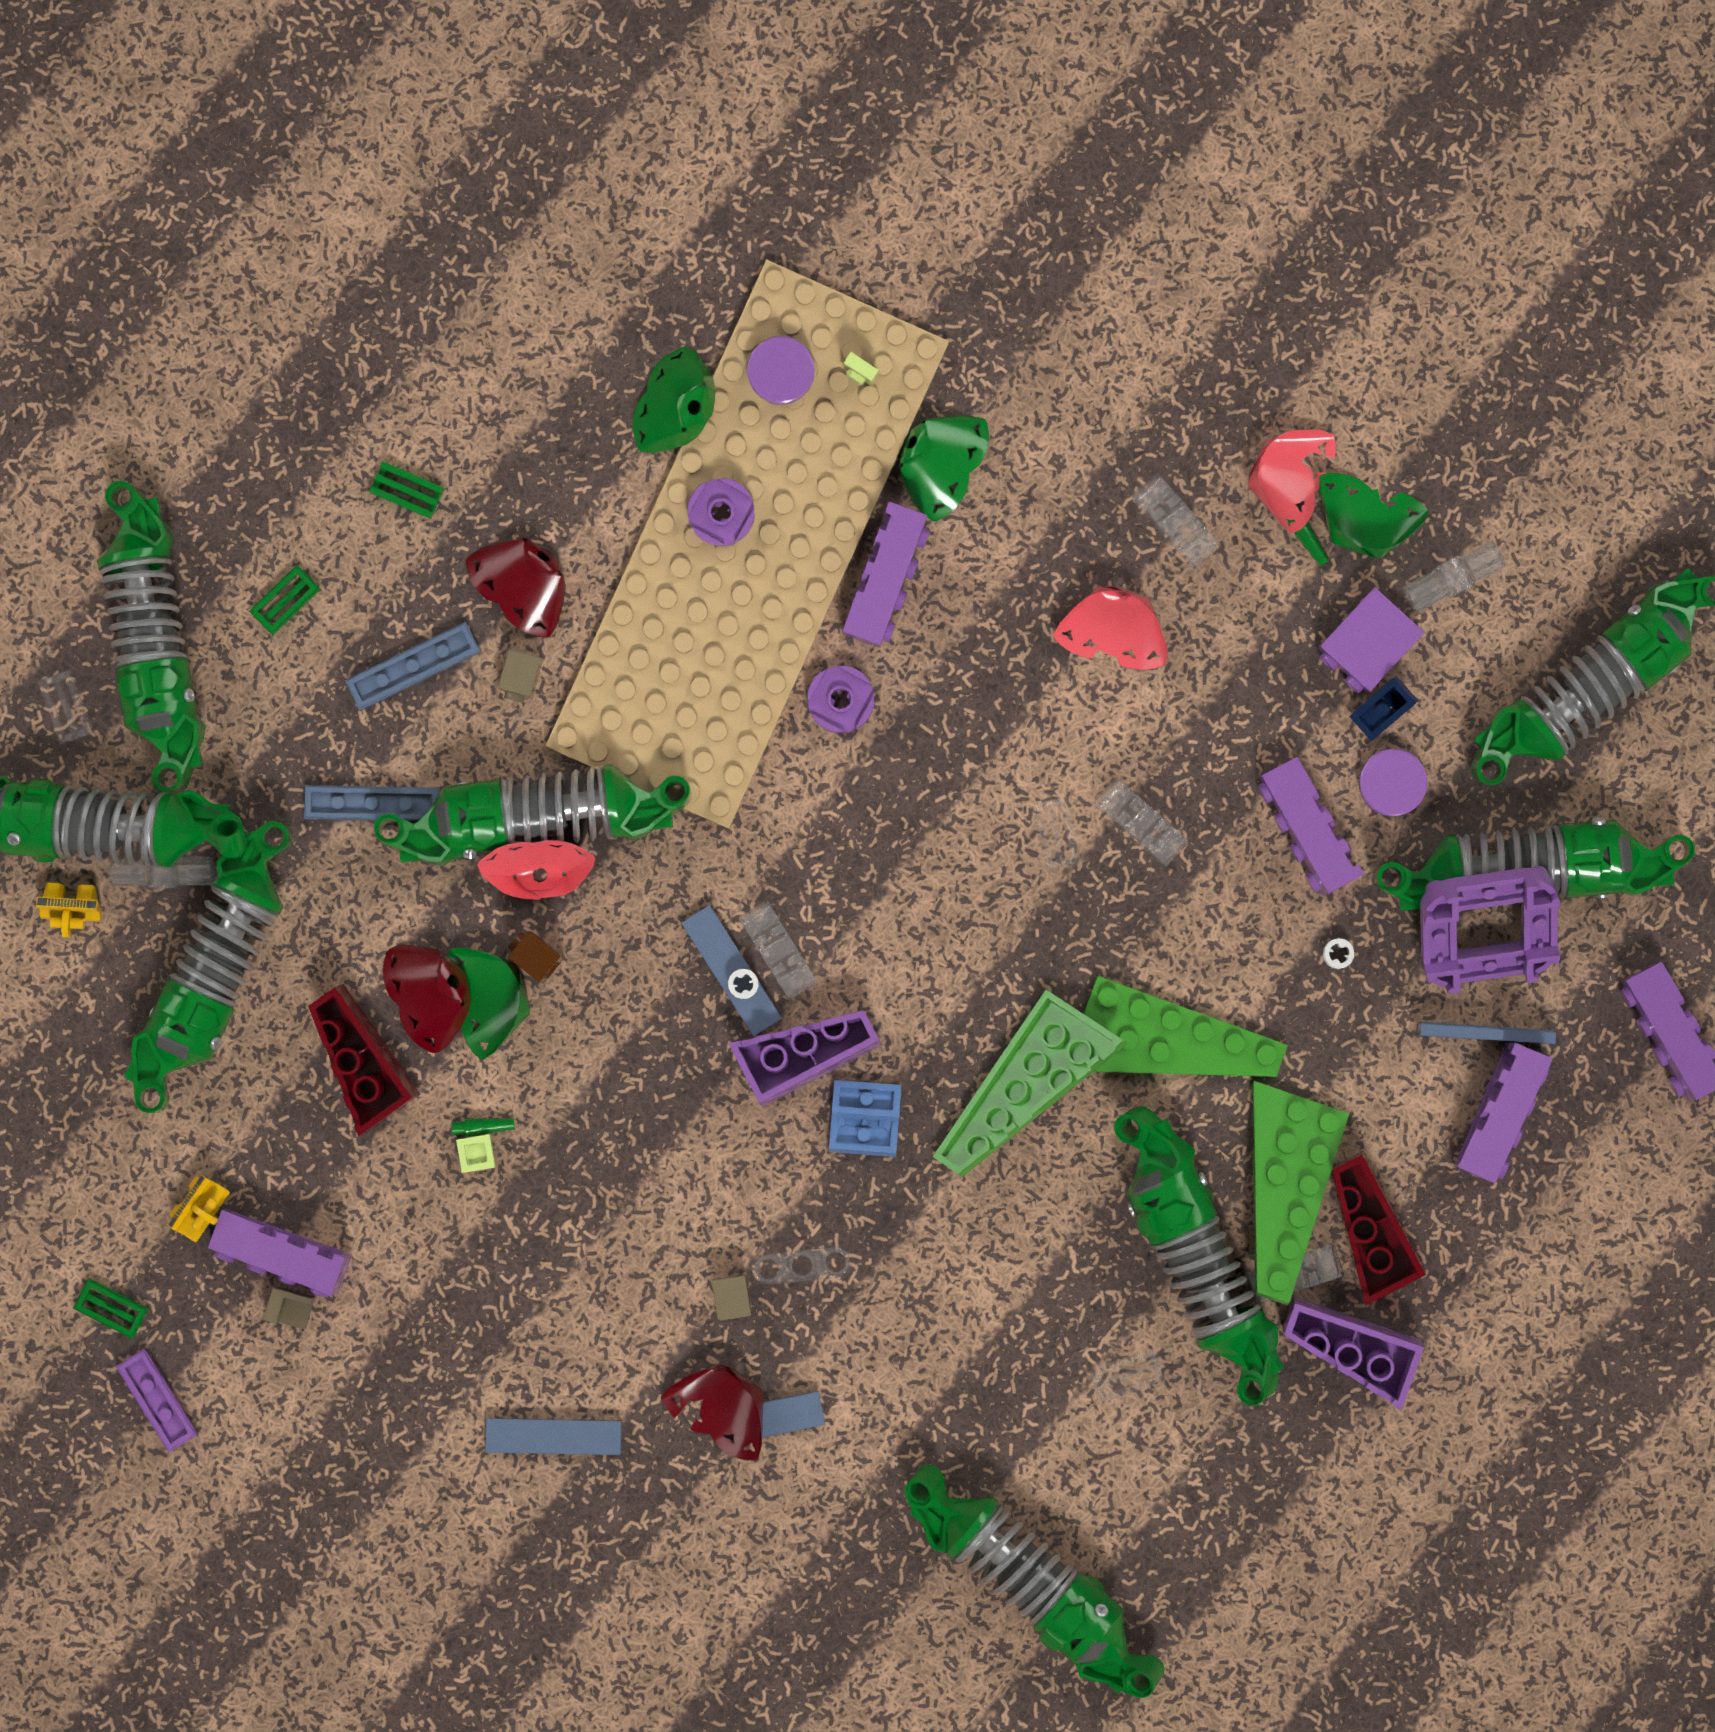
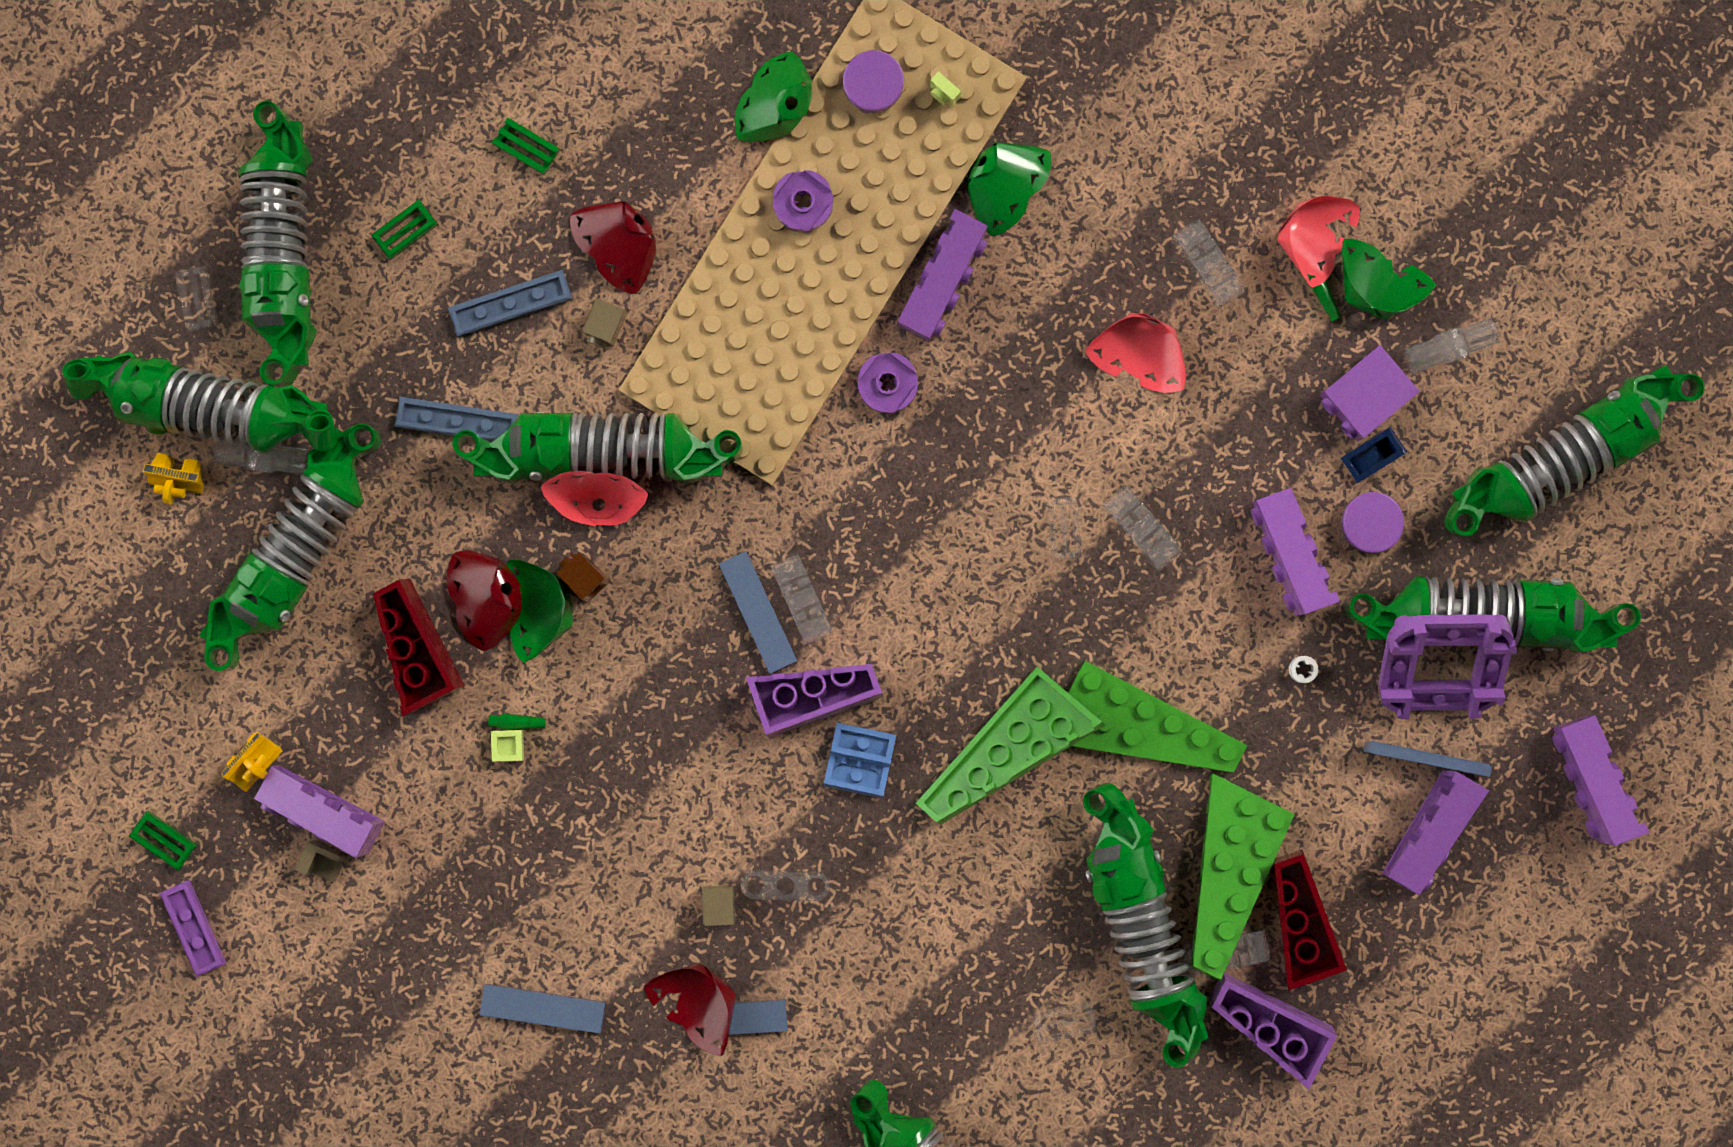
camera: 10 degrees right, 0 degrees up
(741, 973) = (767, 635): white bush -> none

